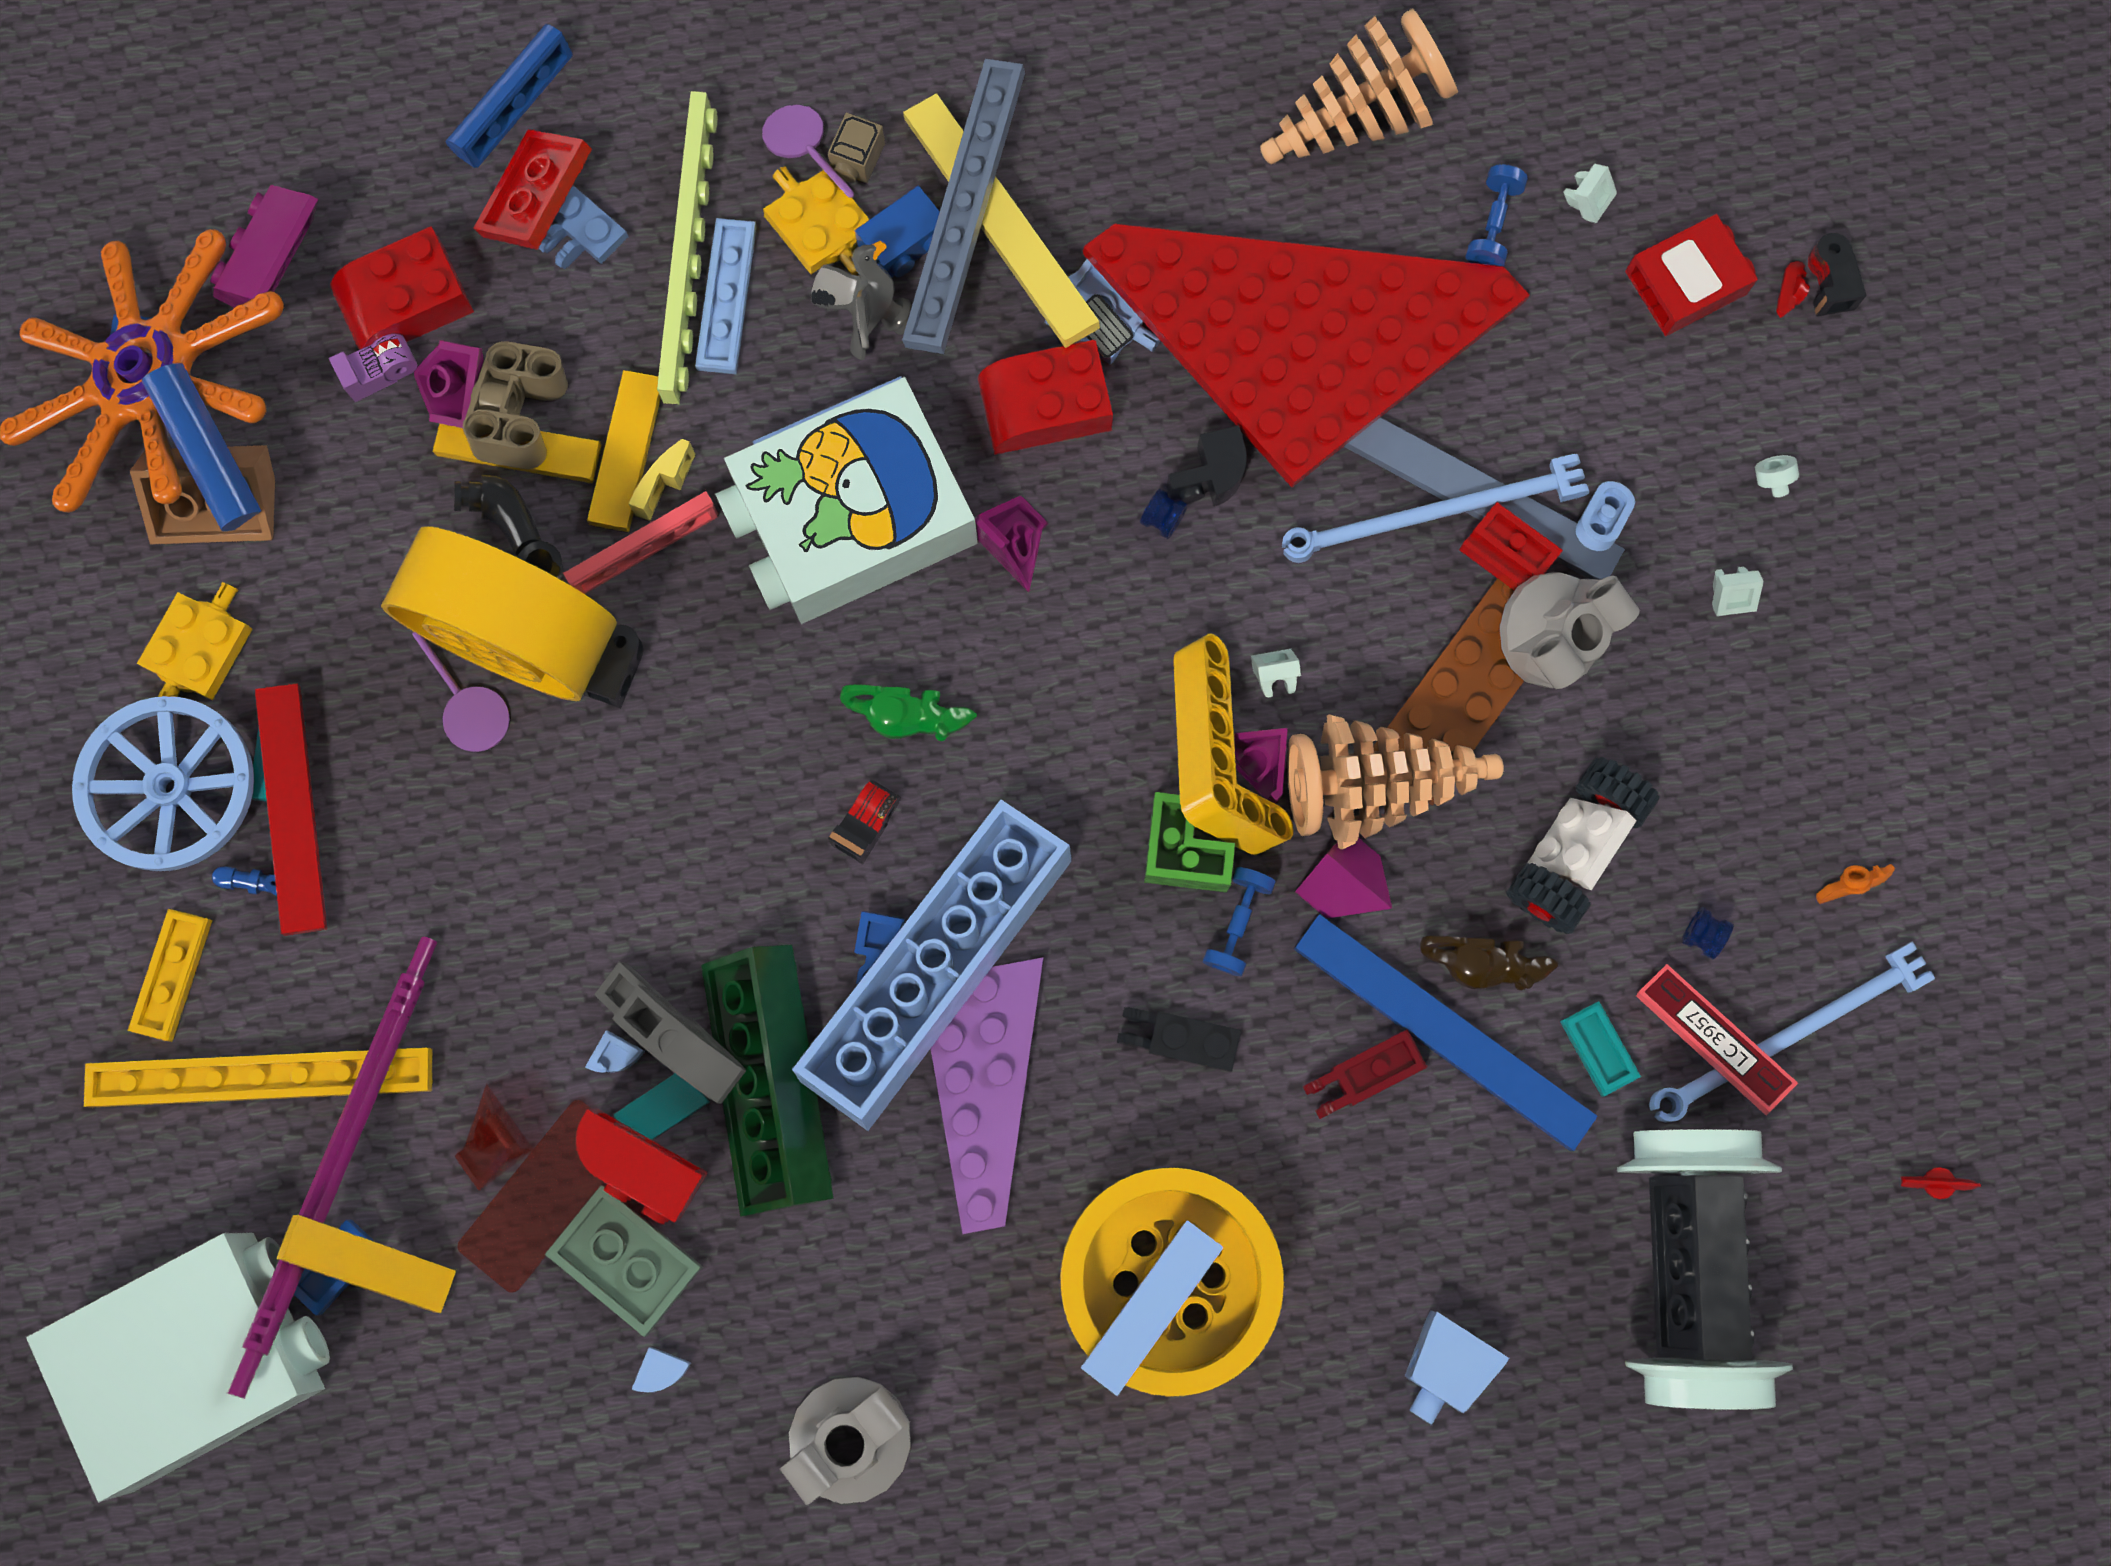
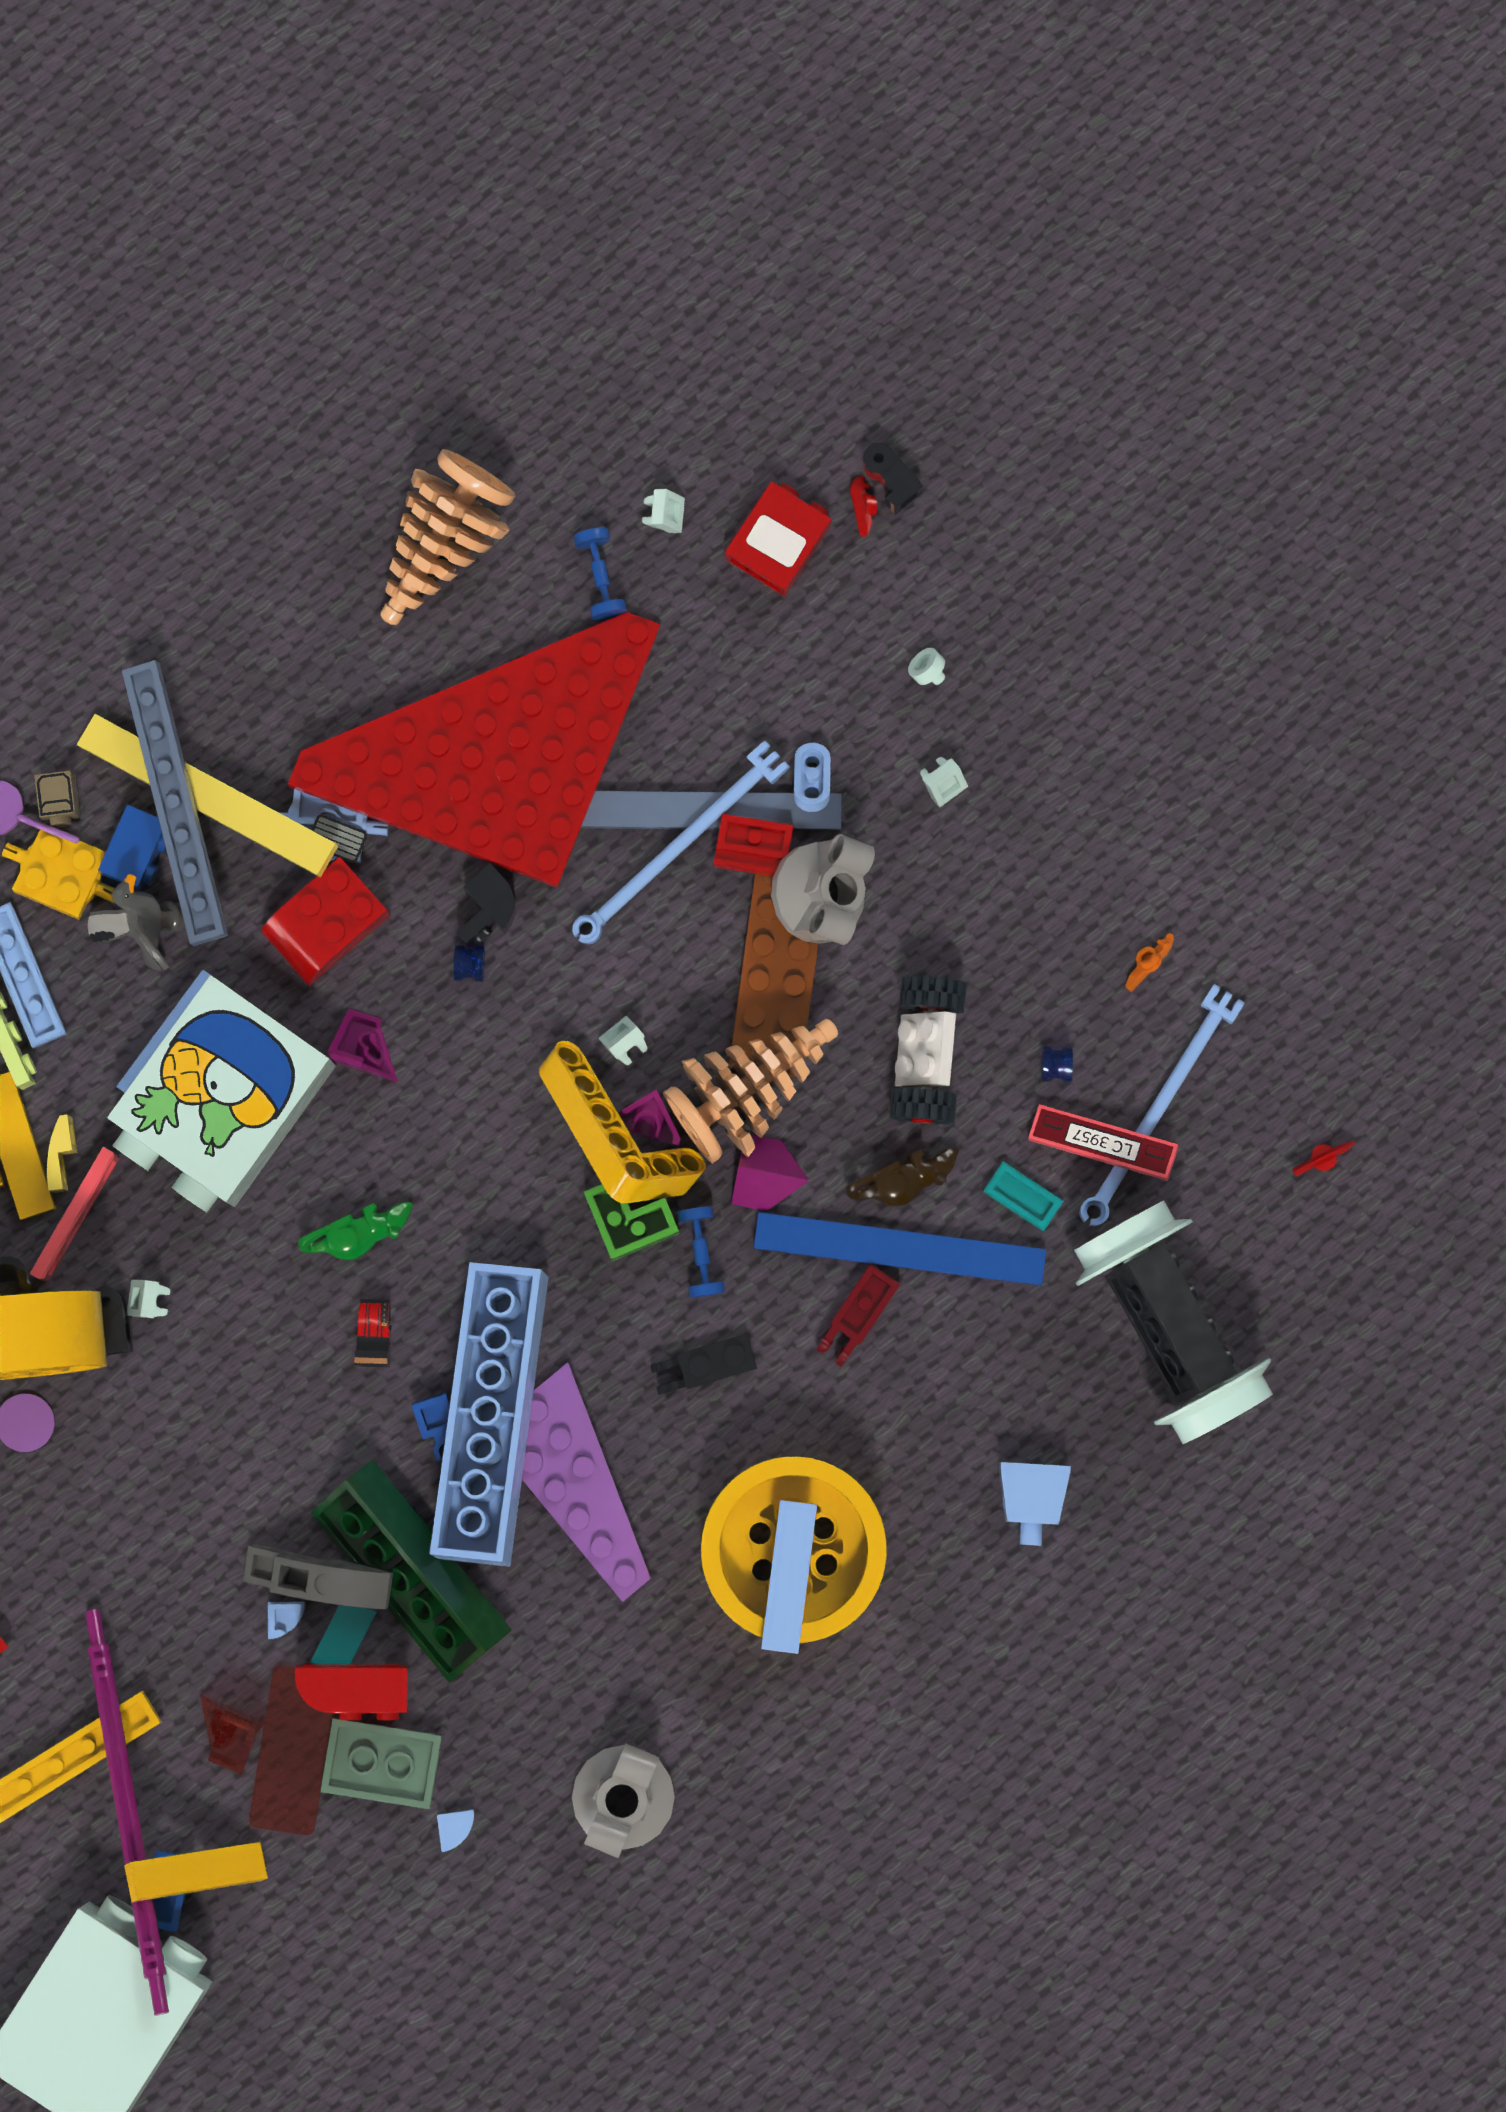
camera: 30 degrees left, 5 degrees up
(660, 660) = (143, 1299): none -> light aqua tile

